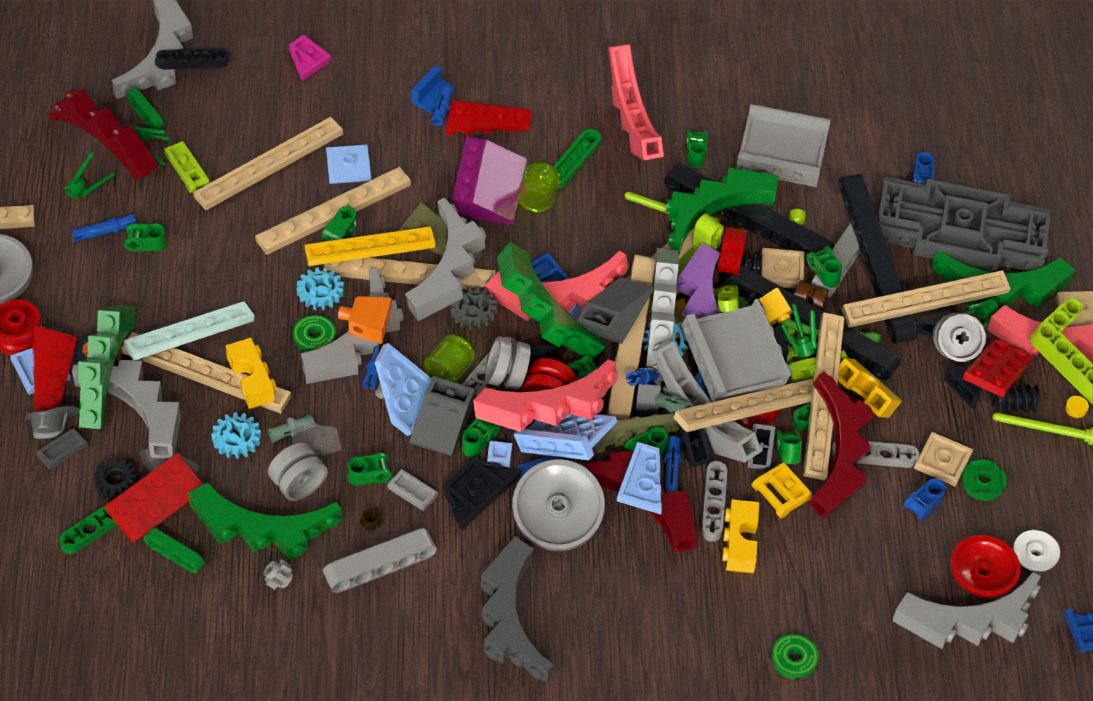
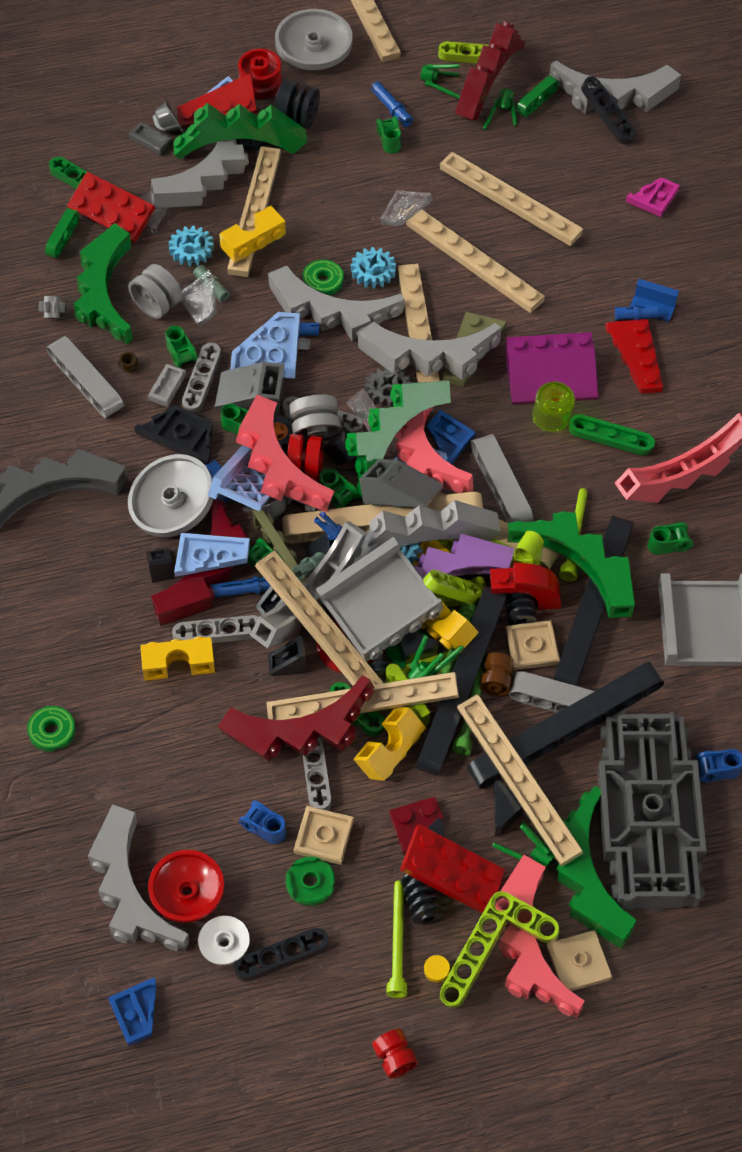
camera: 80 degrees right, 5 degrees up
(56, 161) = (452, 47): none -> lime beam
(80, 301) = (298, 102): none -> black wheel
(111, 469) = (126, 169): black tyre -> none
(186, 166) = (483, 141): lime plate -> none
(188, 330) = (291, 184): light aqua plate -> none
(251, 246) = (404, 206): none -> clear wing
(341, 225) = (448, 267): green piece -> none
(348, 164) = (534, 258): light blue plate -> none
(368, 317) = (335, 301): orange torso -> none
(369, 246) = (429, 289): yellow plate -> none
(412, 458) = (201, 378): none -> light grey beam
(450, 359) = (315, 377): clear neon green piece -> none
(498, 326) = (360, 405): none -> clear wing
(499, 453) = (224, 442): light blue plate -> none
(602, 247) = (501, 479): none -> light grey beam
(629, 532) = (160, 565): none -> black slope
(787, 485) = (249, 691): yellow plate -> none
(788, 446) = (296, 682): green piece -> none
(797, 216) = (606, 648): lime hinge -> none
(825, 266) = (536, 672): green piece -> none
(939, 392) = (409, 816): none -> dark red wing
(971, 339) = (479, 821): wheel -> none
(1054, 513) = (279, 951): none -> black beam

